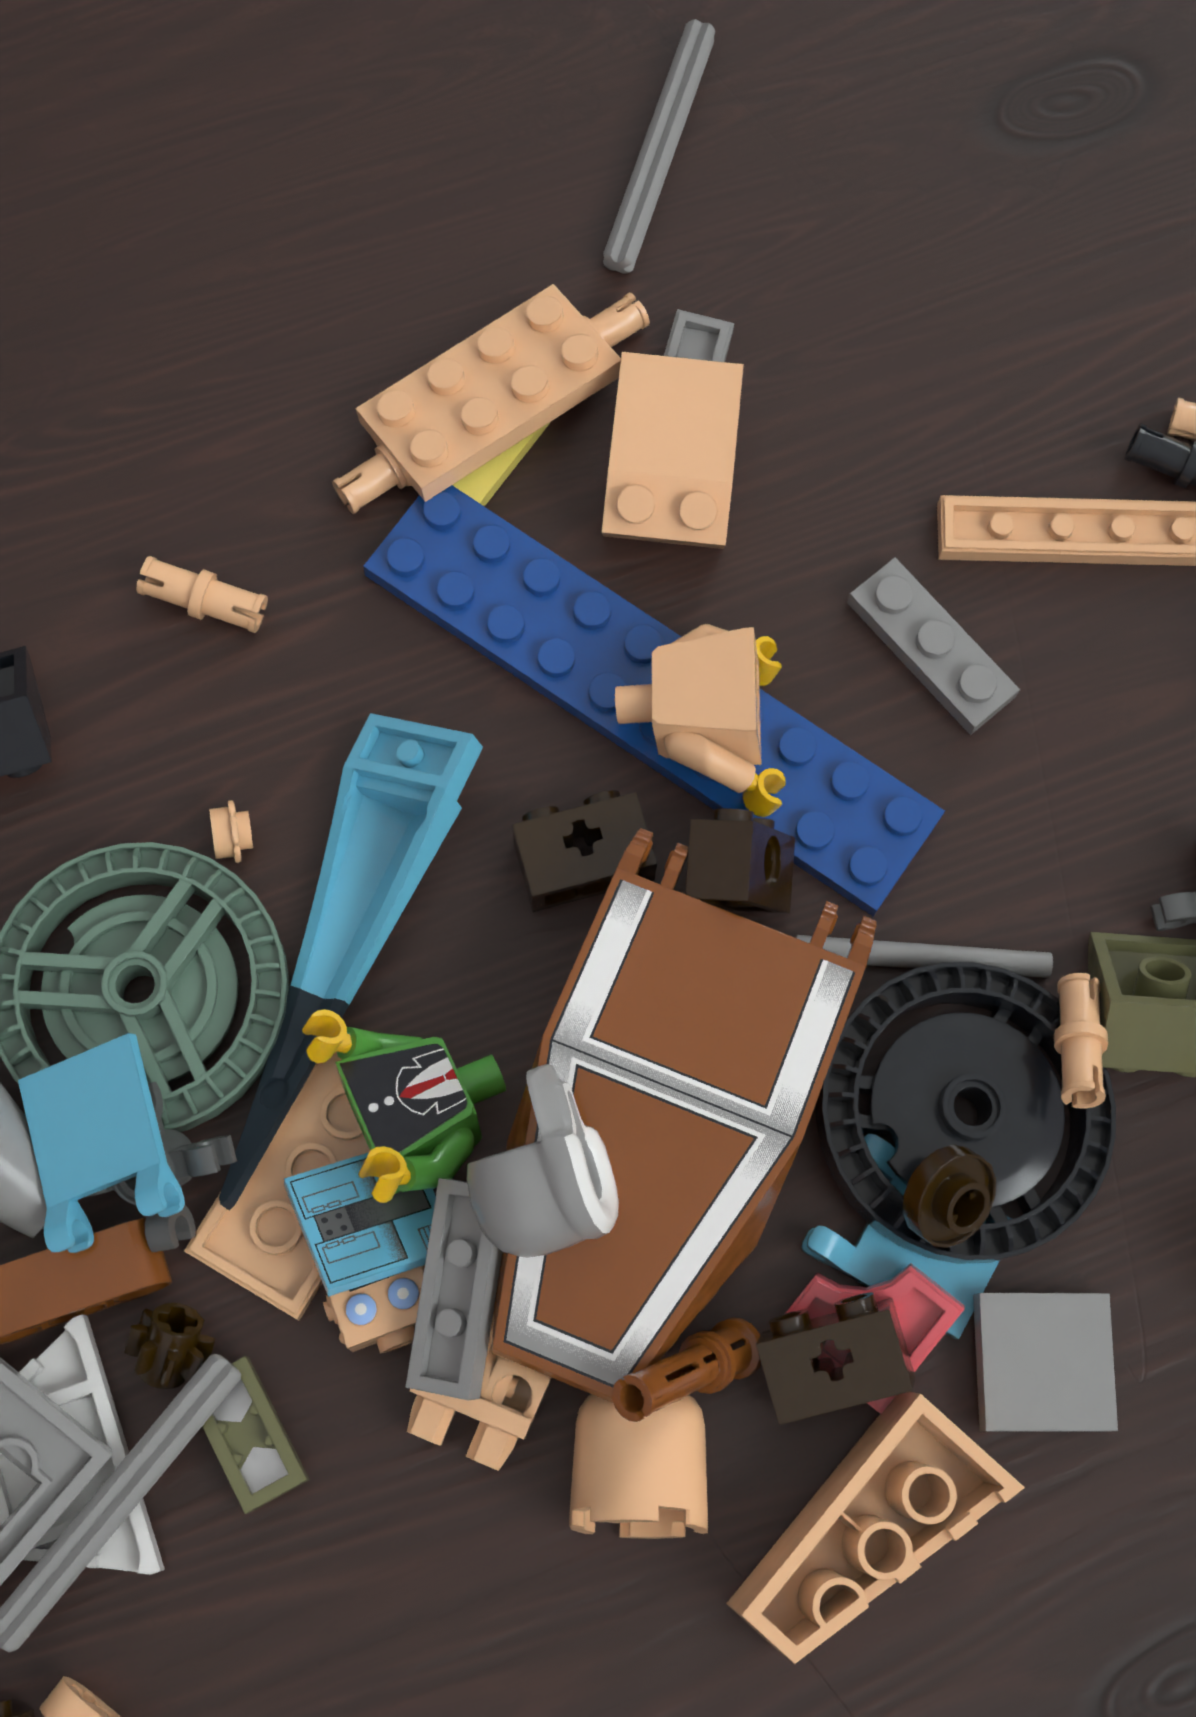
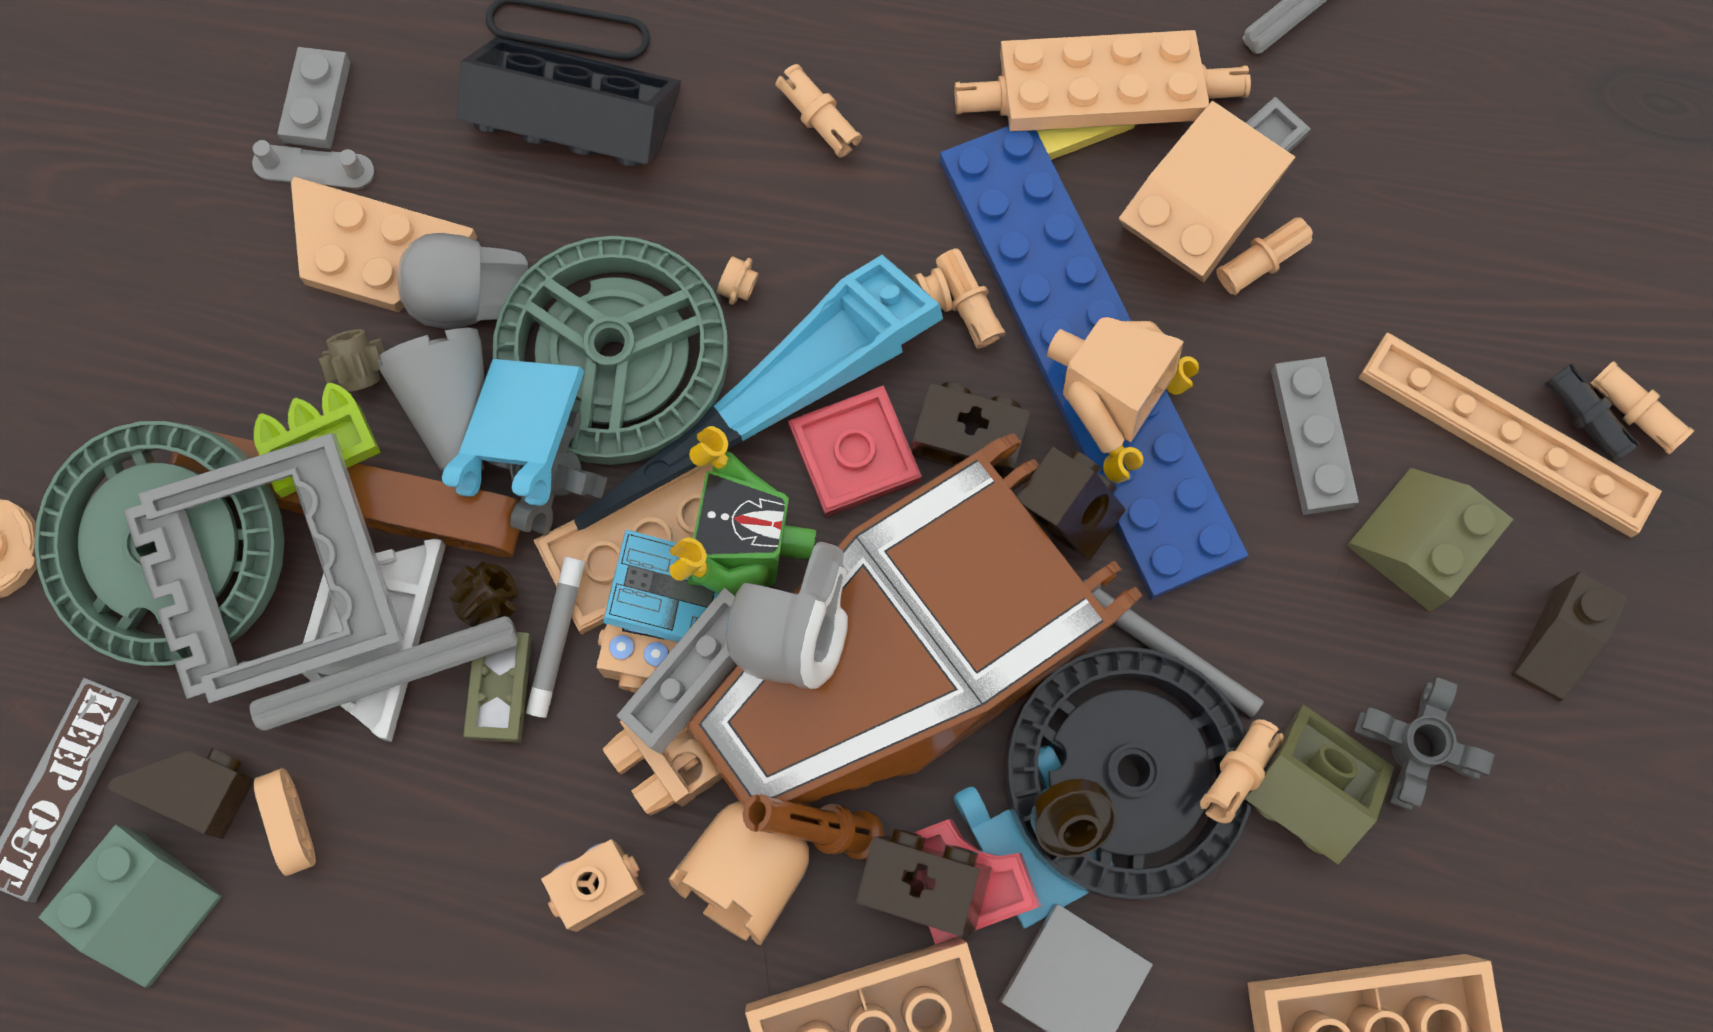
camera: 35 degrees right, 0 degrees up
(276, 1342) = (555, 637): none -> light grey bar
(450, 715) = (936, 287): none -> light nougat bush
(471, 943) = (854, 451): none -> coral tile
(489, 1552) = (616, 886): none -> light nougat head
(492, 707) = (970, 299): none -> light nougat axle
(769, 485) = (1264, 255): none -> light nougat axle
(1110, 683) = (1429, 535): none -> olive slope

